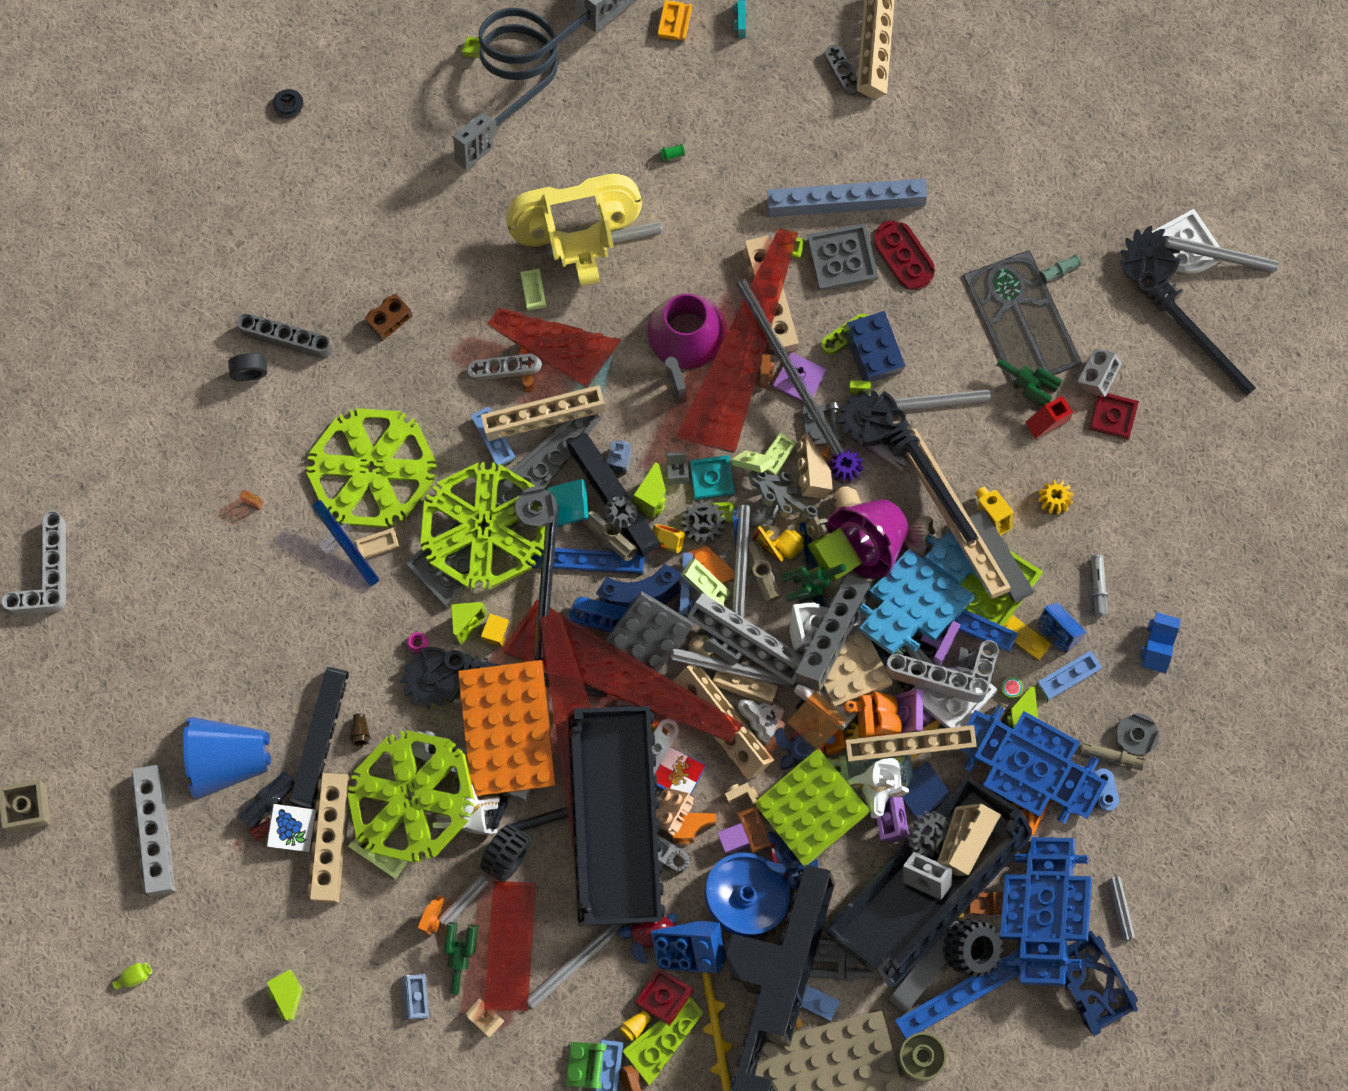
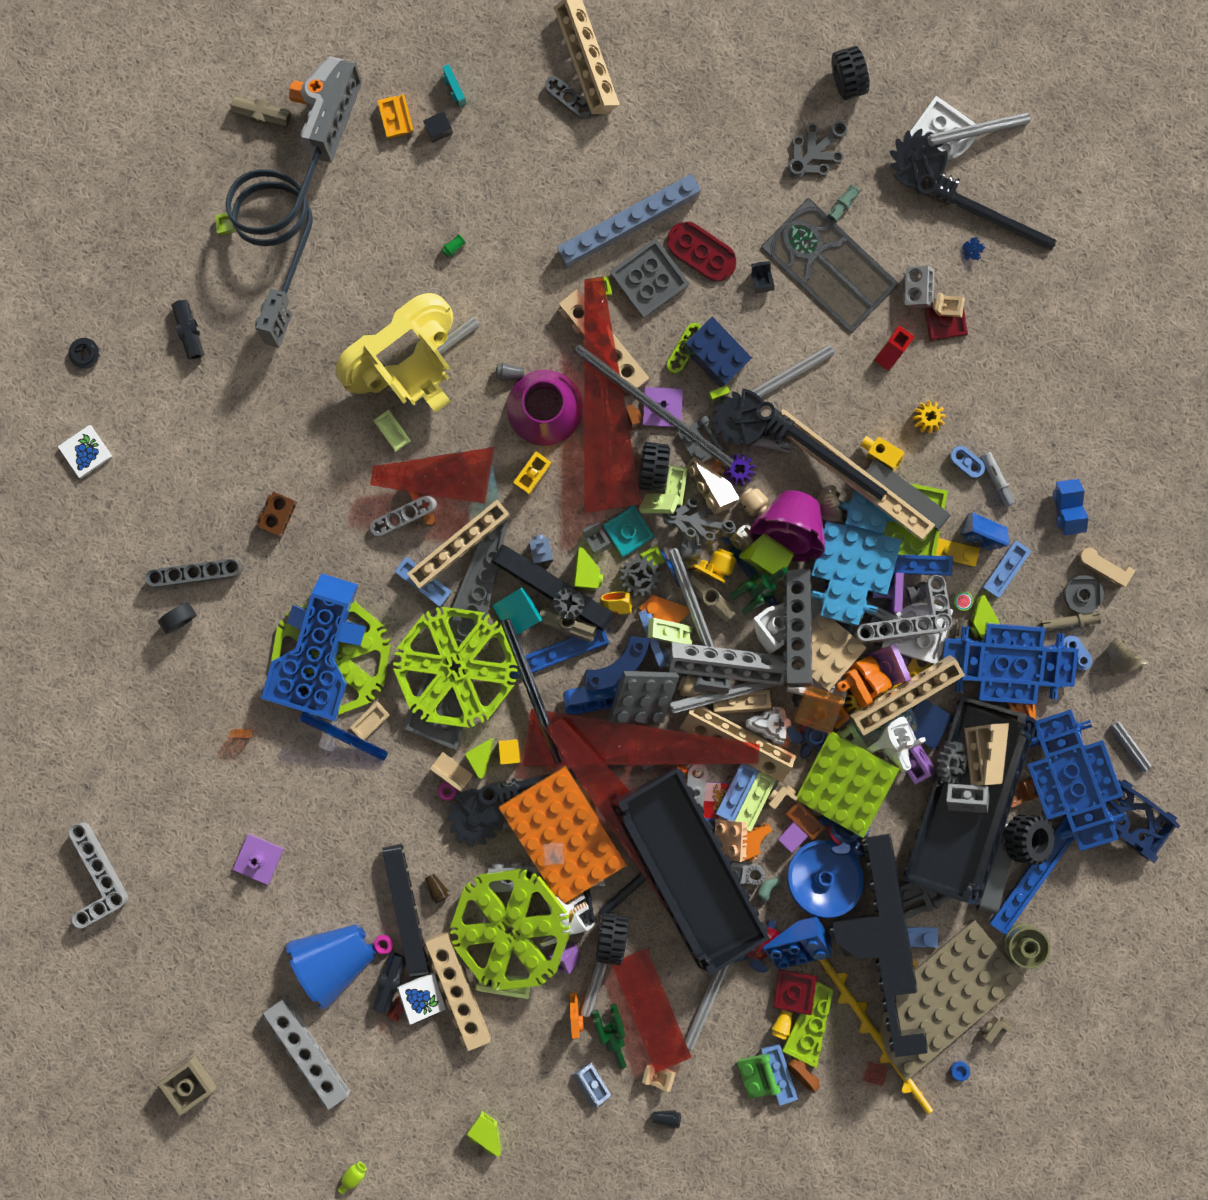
camera: 35 degrees left, 15 degrees up
(205, 625) = (258, 859): none -> medium lavender tile
(243, 188) = (85, 451): none -> white tile
(281, 754) = (381, 950): none -> dark pink plate
(375, 434) = (322, 628): none -> blue piece
(391, 122) = (187, 329): none -> black piece
(431, 625) = (451, 771): none -> tan panel
(452, 856) = (569, 959): none -> medium lavender panel
(473, 1066) = (669, 1119): none -> black cone
(489, 738) = (553, 853): none -> clear plate
(544, 515) = (497, 622): dark grey plate -> none
(645, 382) = (532, 473): none -> yellow brick
(668, 284) = (508, 372): none -> dark grey cone
(675, 377) = (562, 465): dark grey plate -> none
(684, 879) = (766, 887): none -> sand green arm
(699, 769) = (737, 792): none -> medium blue plate
(709, 44) = (438, 126): none -> black panel
(714, 785) = (755, 799): none -> yellowish green plate
(763, 424) = (654, 467): none -> black tyre
(951, 300) = (762, 277): none -> black bracket
(1031, 382) = (865, 322): dark green plant -> none
(1054, 211) = (814, 152): none -> dark grey plant
(1076, 556) = (968, 459): none -> medium blue plate
(1118, 152) = (850, 72): none -> black tyre
(1120, 400) = (948, 305): none -> tan bracket
(1150, 813) = (1123, 658): none -> dark tan hair
(1169, 361) = (973, 249): none -> clear blue plant
(1170, 718) = (1118, 576): none -> tan leg

